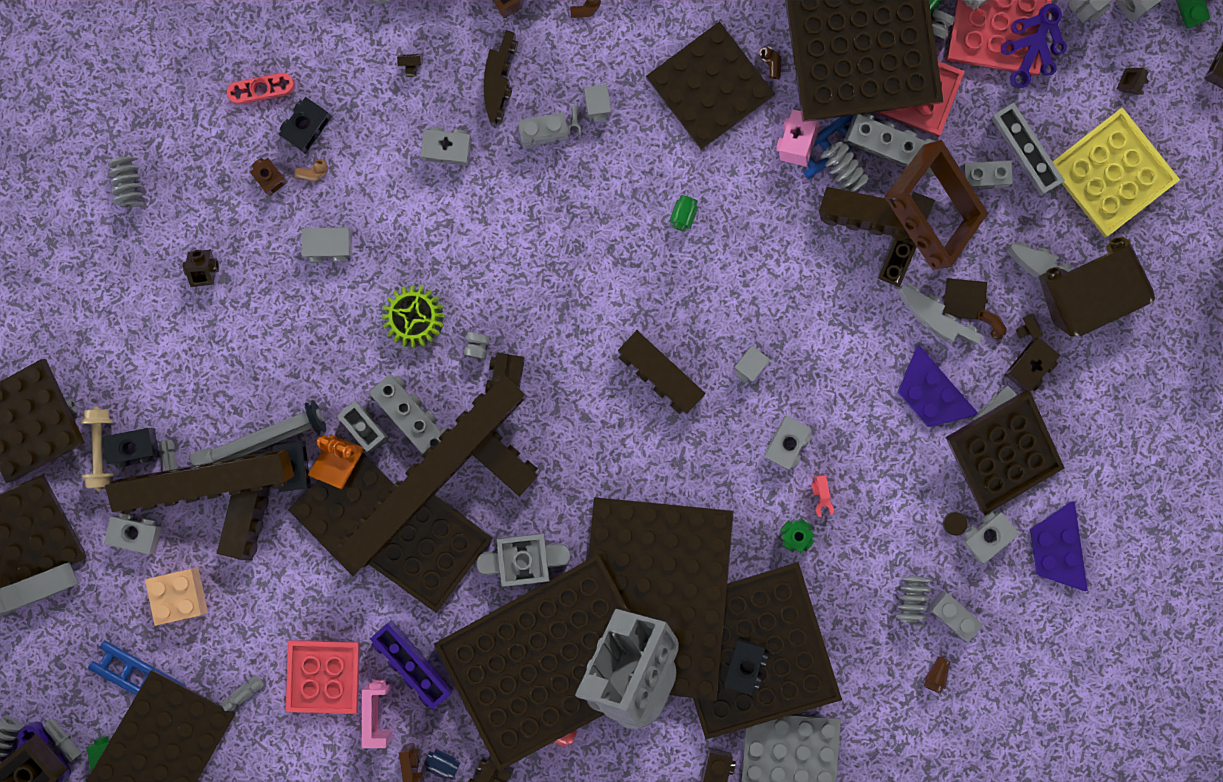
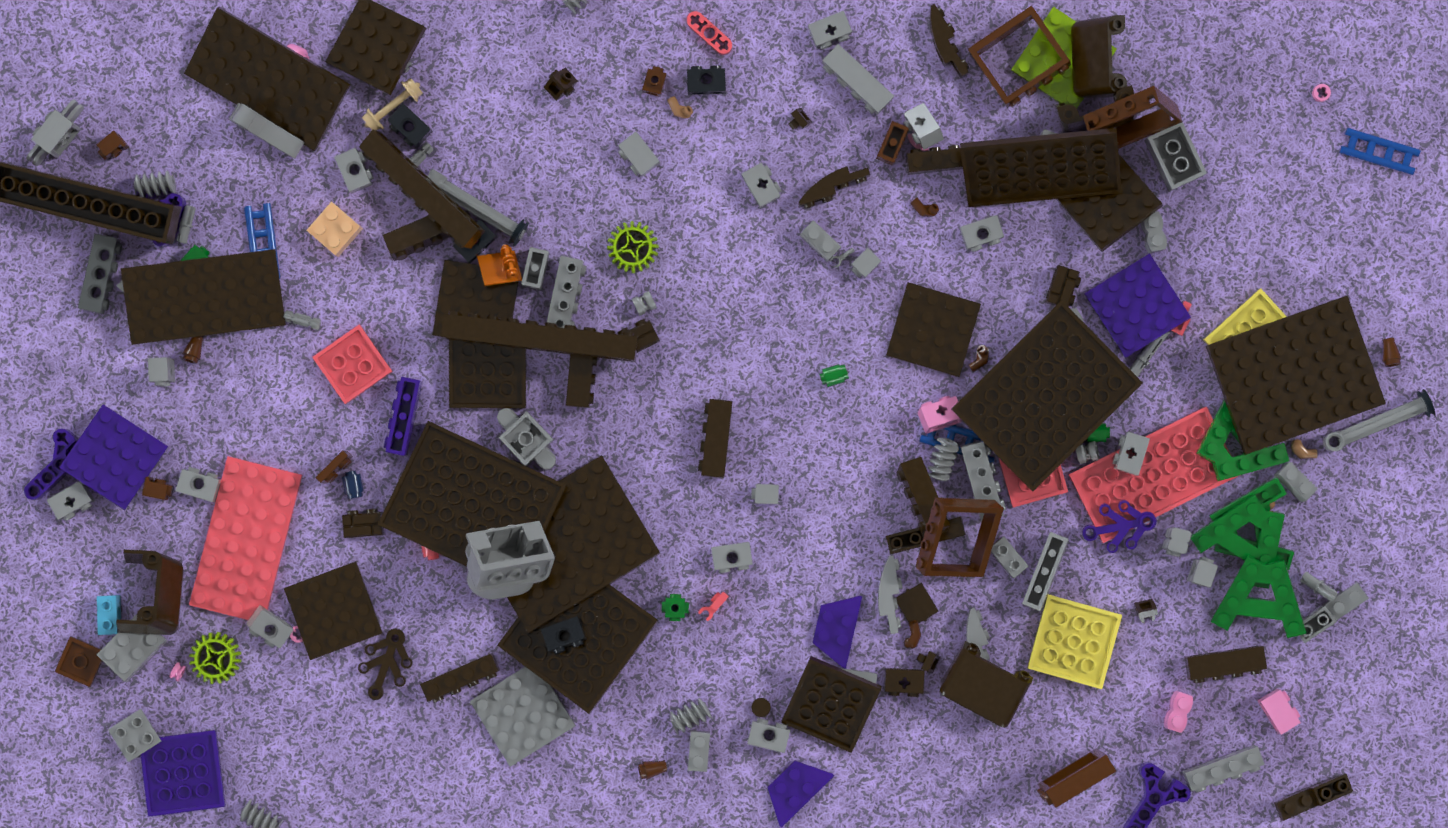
camera: 55 degrees right, 0 degrees up
(370, 698) = (353, 412): bright pink panel -> none

